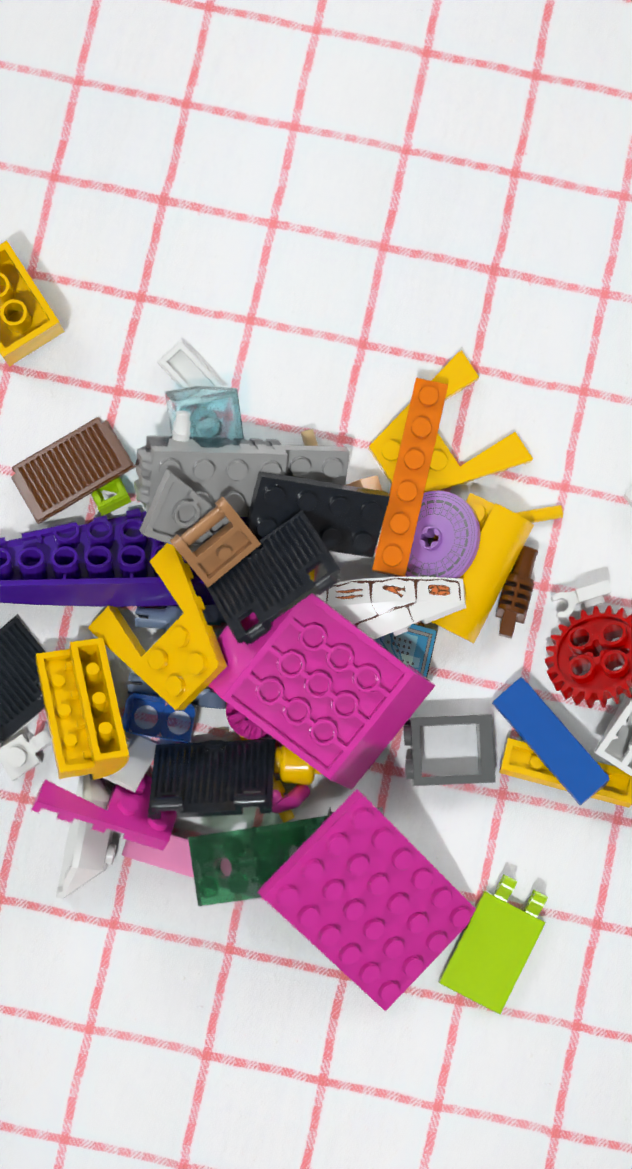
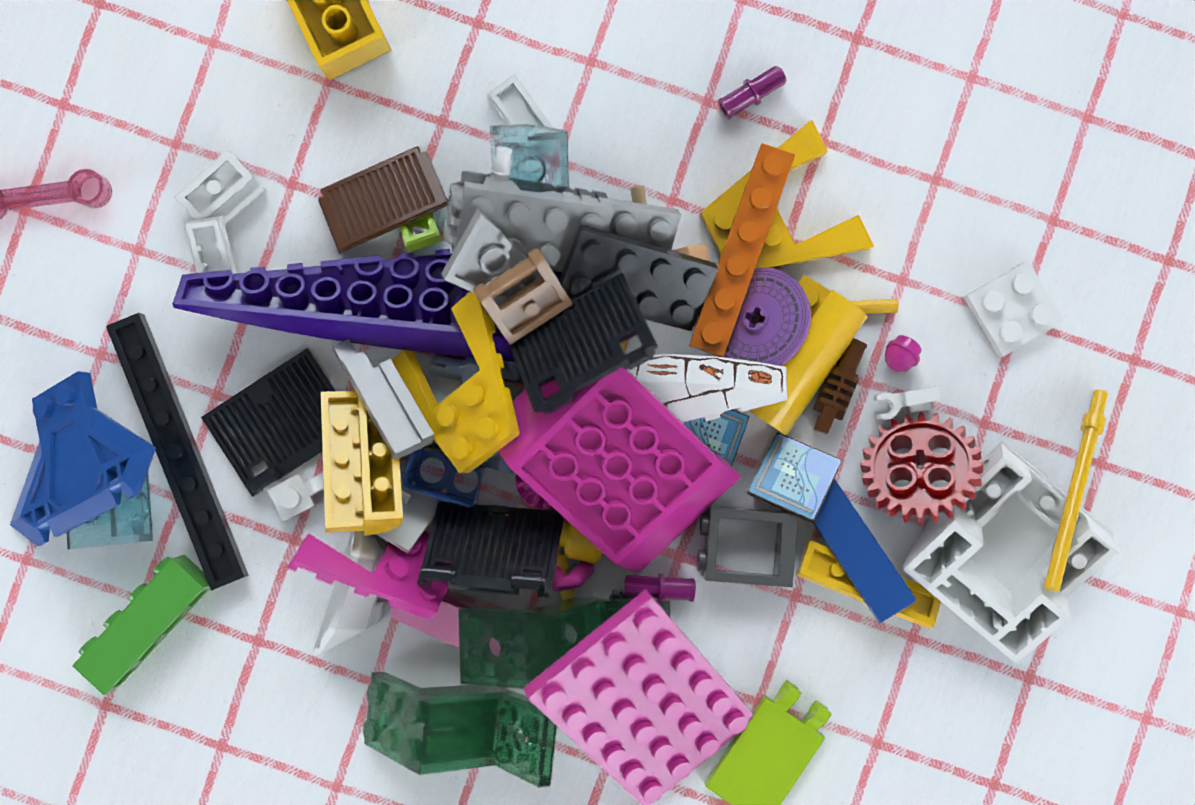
camera: 10 degrees right, 5 degrees up
(98, 653) = (386, 401): none -> piece
(201, 949) = (459, 728): none -> clear green bracket
(381, 798) = (660, 587): none -> magenta axle
(402, 331) = (752, 91): none -> magenta axle
(486, 680) = (795, 477): none -> piece
(571, 555) = (902, 353): none -> dark pink plate

